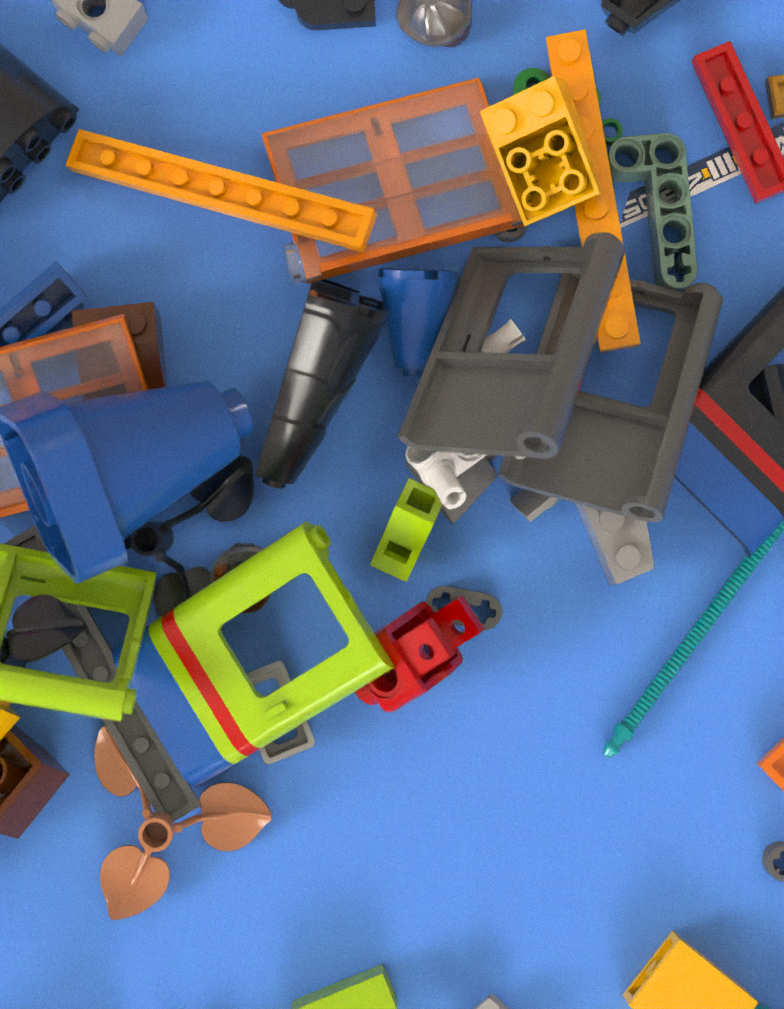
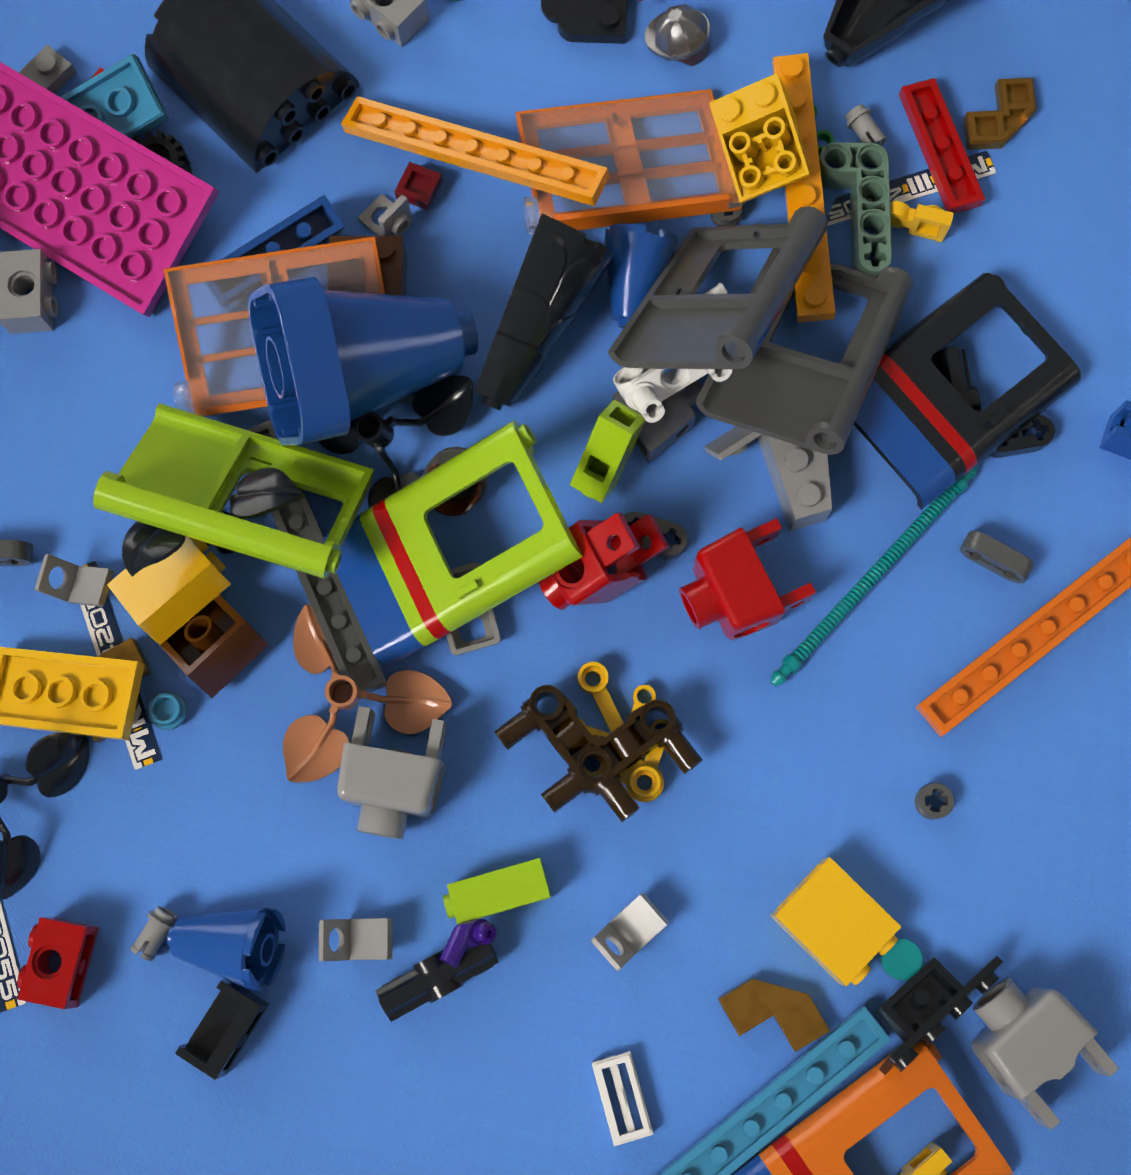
camera: 10 degrees right, 10 degrees down
(141, 280) = (393, 221): none -> light grey bracket
(162, 230) = (419, 185): none -> dark red plate
(217, 908) = (390, 781): none -> light grey piece
(450, 851) = (618, 749): none -> dark brown pin
(454, 831) = (649, 766): none -> yellow plant
(558, 662) = (736, 587): none -> red piece
(656, 107) = (864, 125): none -> light grey pin
(733, 216) = (924, 221): none -> yellow plate

